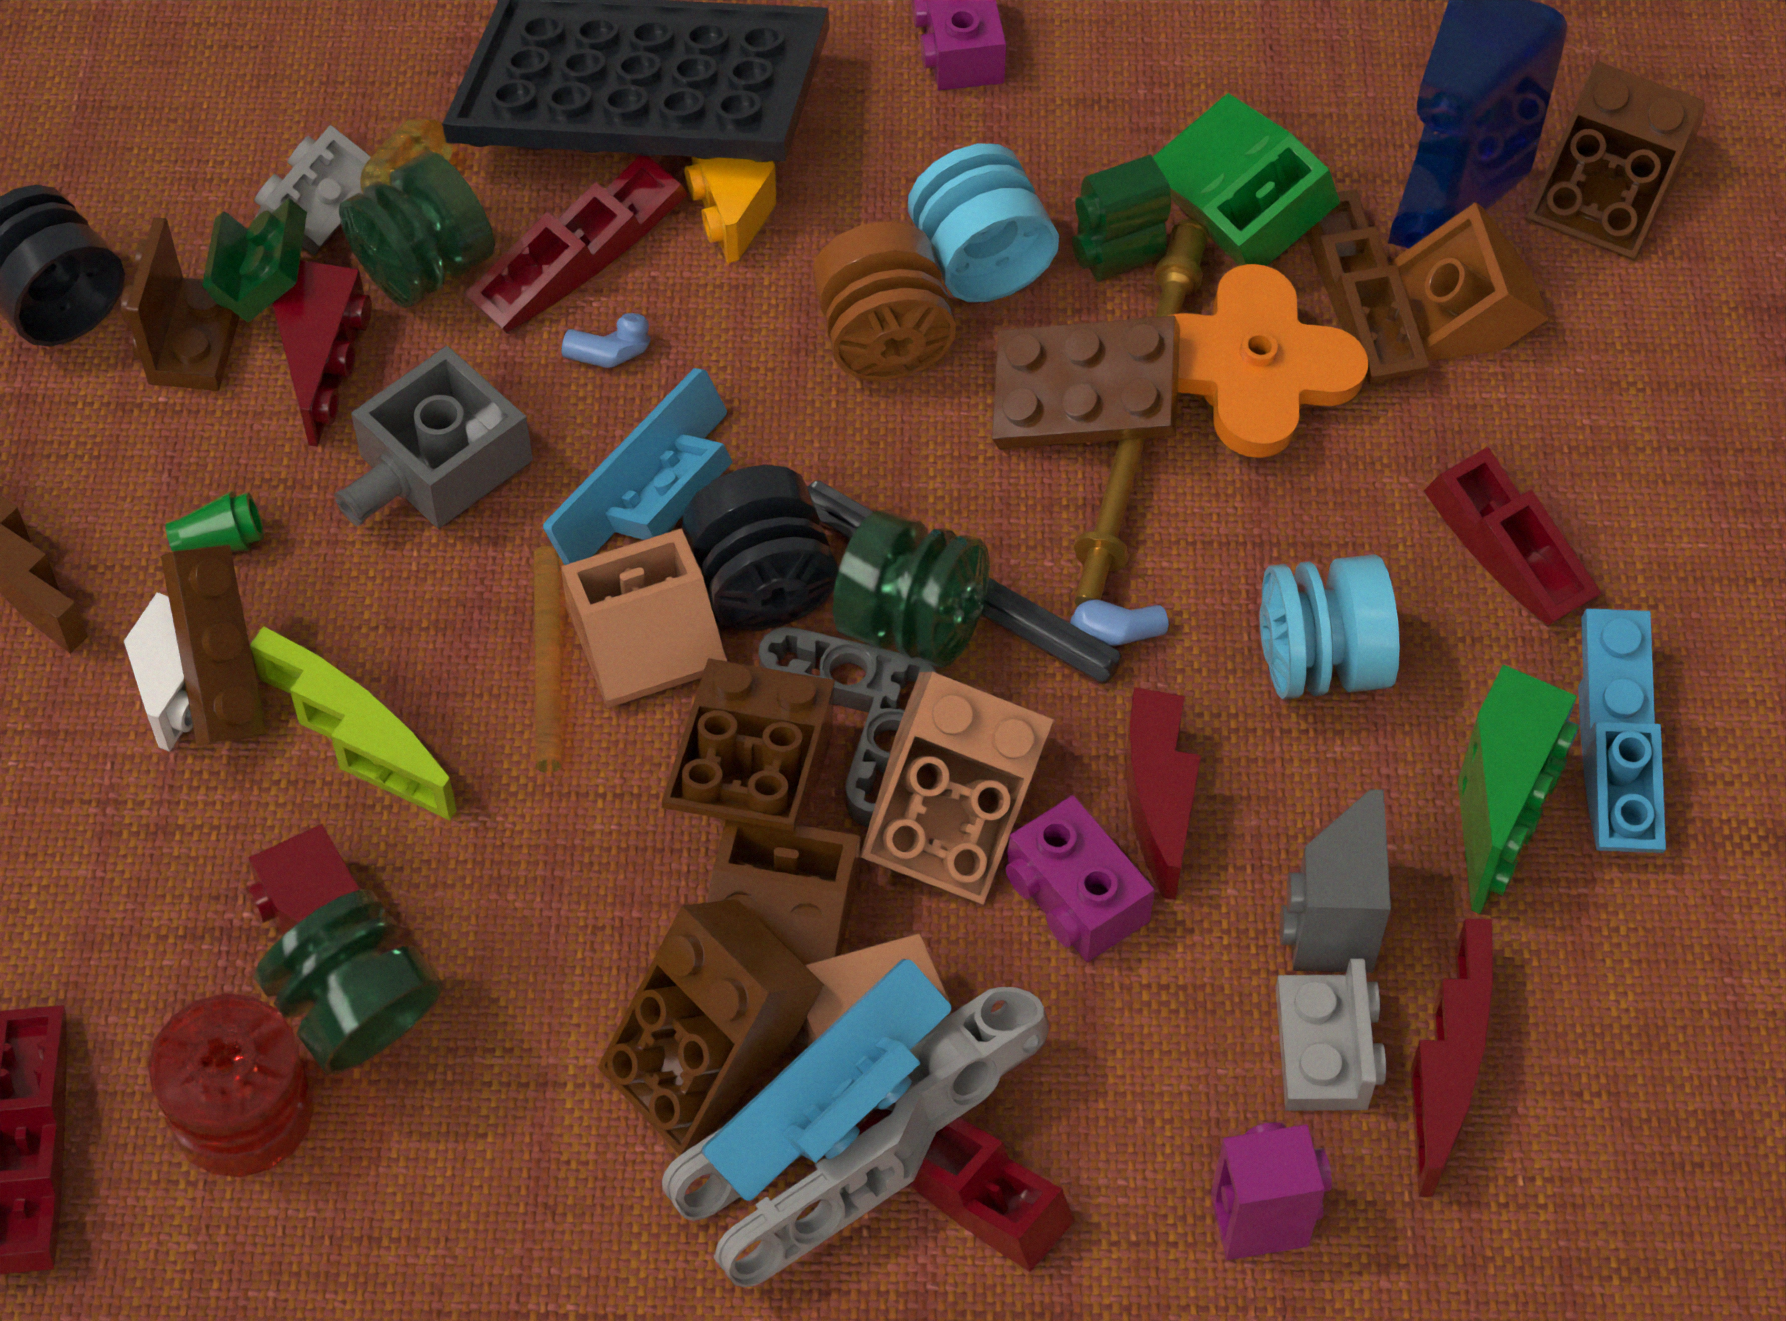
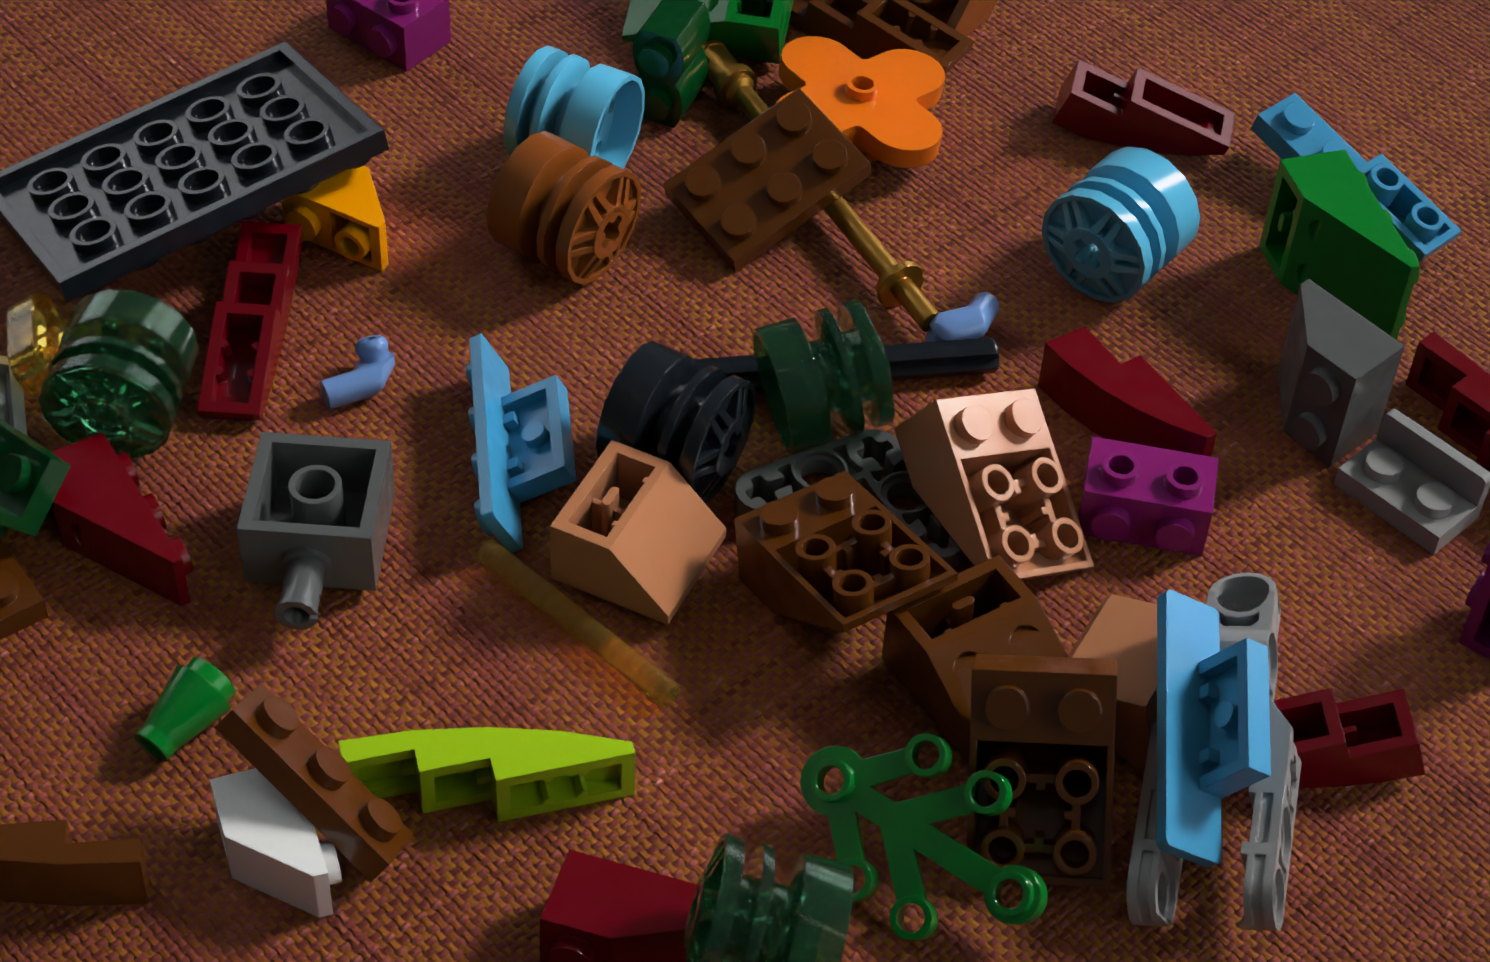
camera: 45 degrees left, 10 degrees down
(559, 926) = (908, 829): none -> green plant

